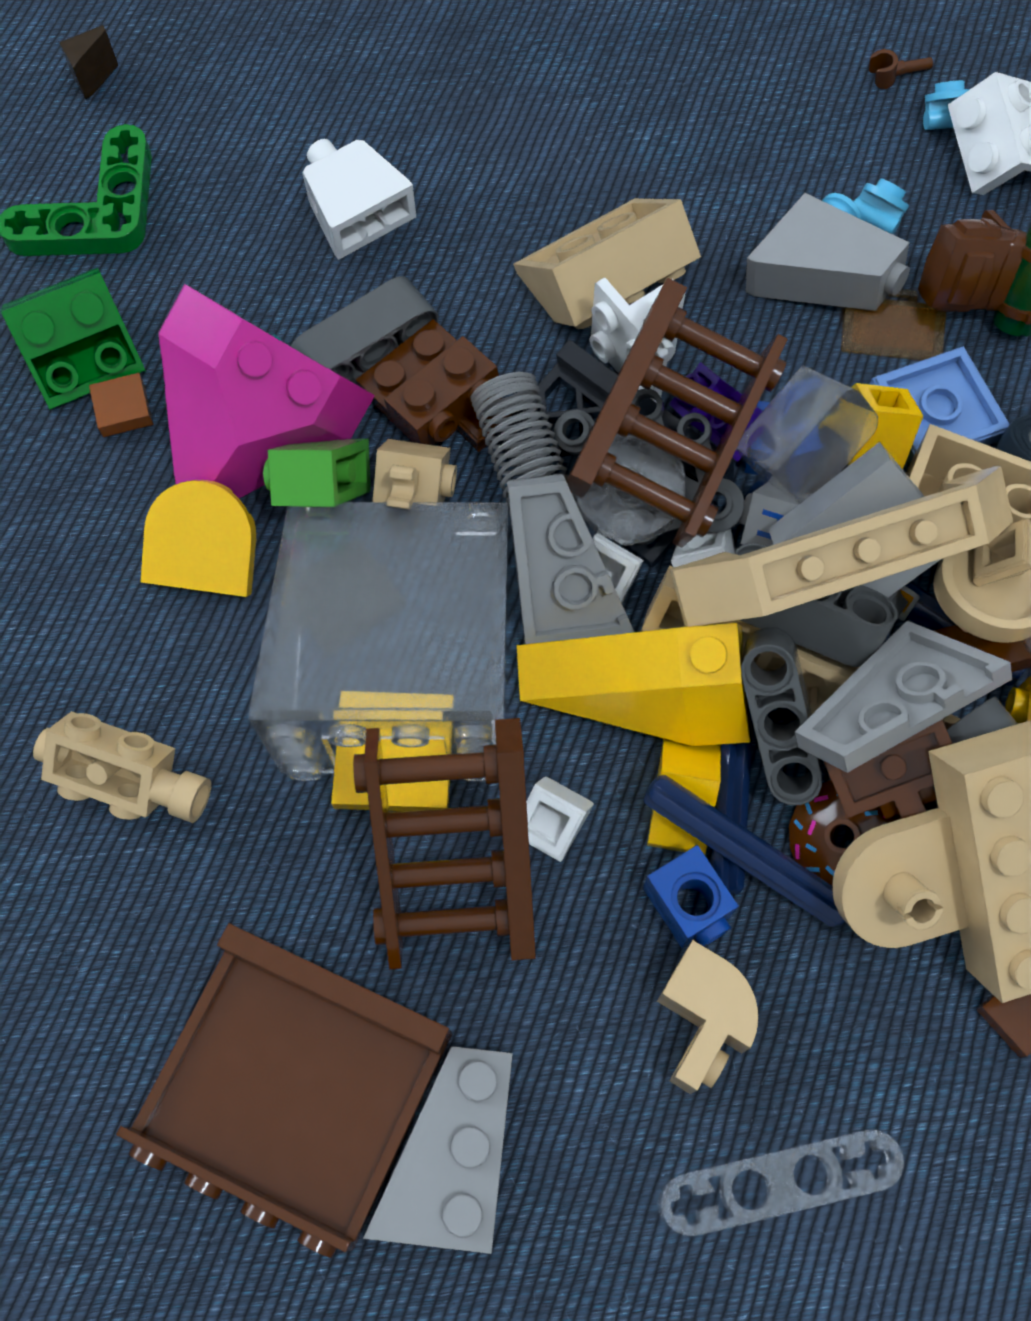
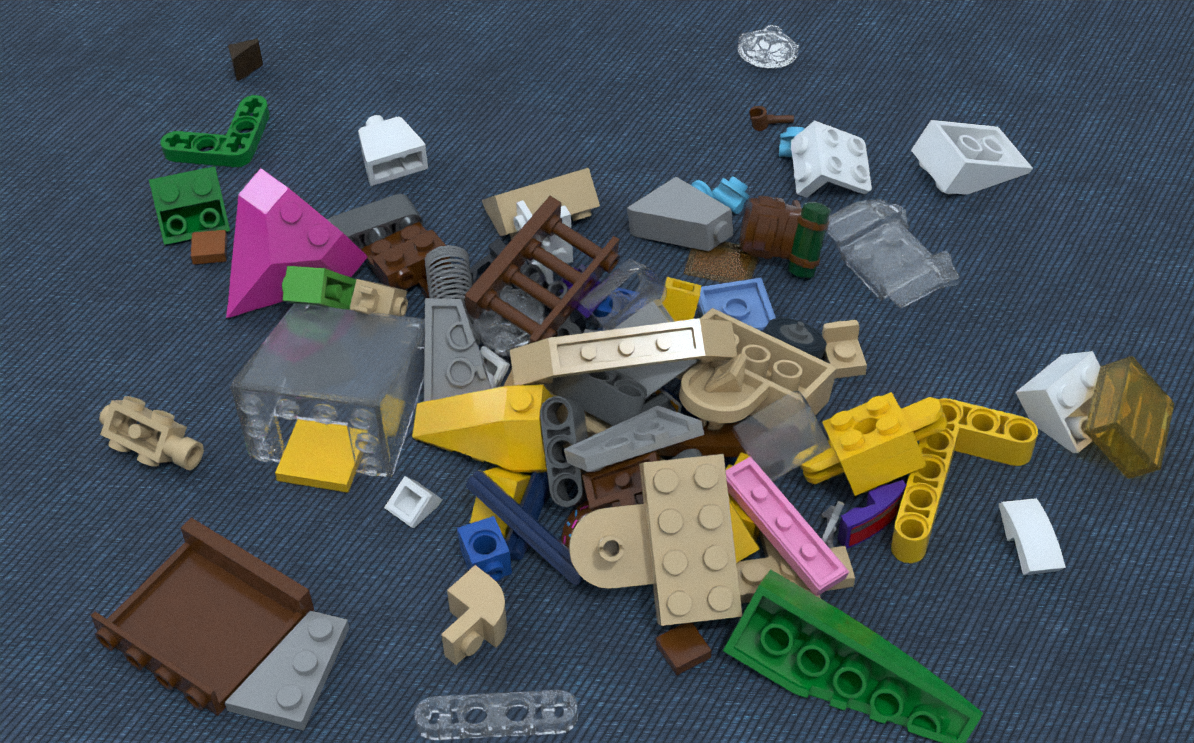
camera: 10 degrees right, 20 degrees down
(199, 540) = (234, 319): yellow tile -> none
(502, 817) = (370, 466): reddish brown fence -> none

